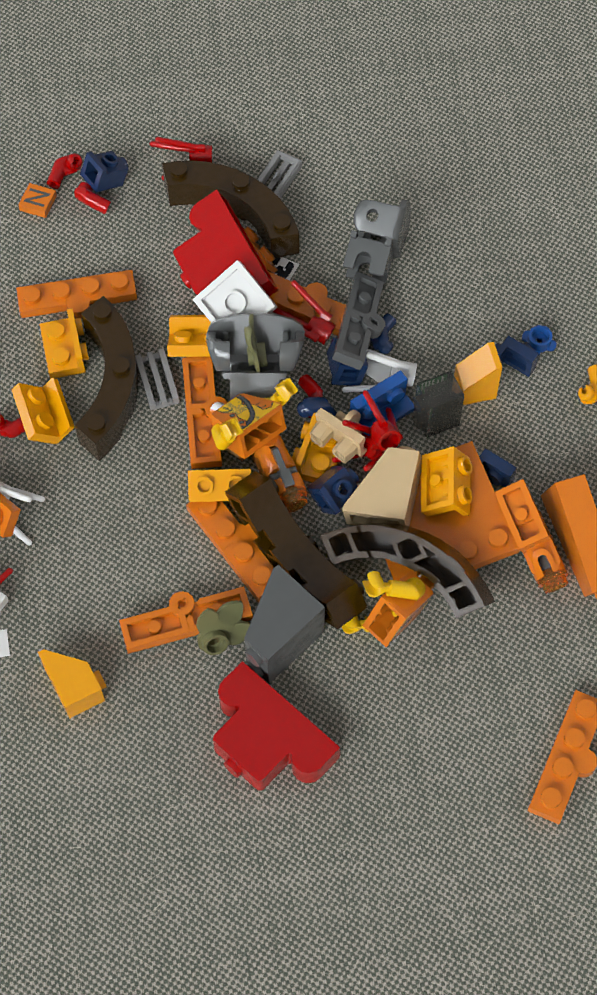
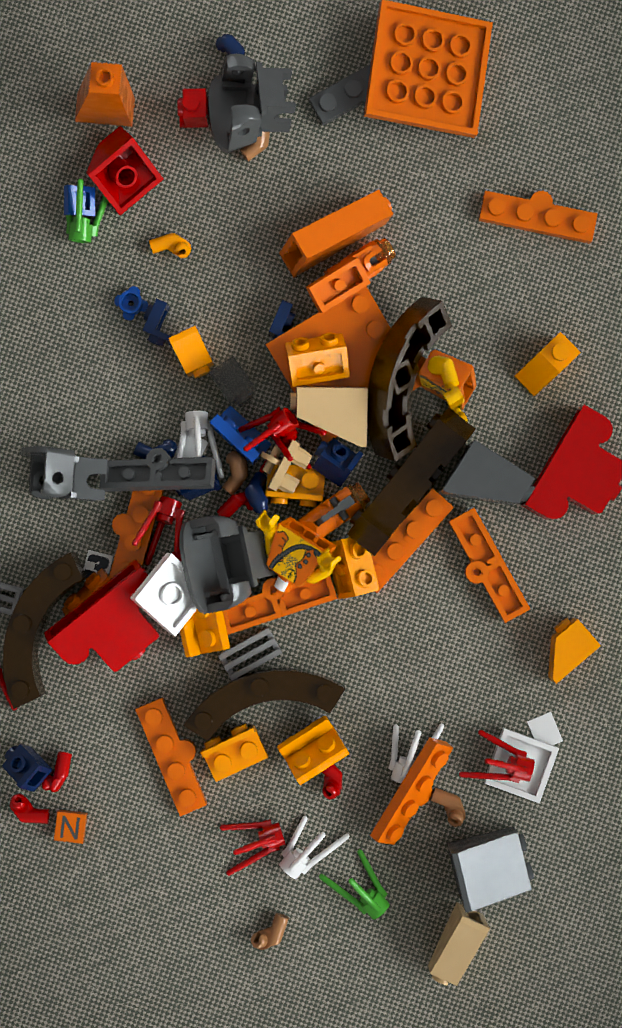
camera: 100 degrees left, 25 degrees up
(221, 628) = (501, 535): olive plate -> none
(255, 351) = (222, 561): olive plate -> none
(337, 399) = (238, 471): none -> medium nougat arm
(396, 728) = (547, 364): none -> light orange slope

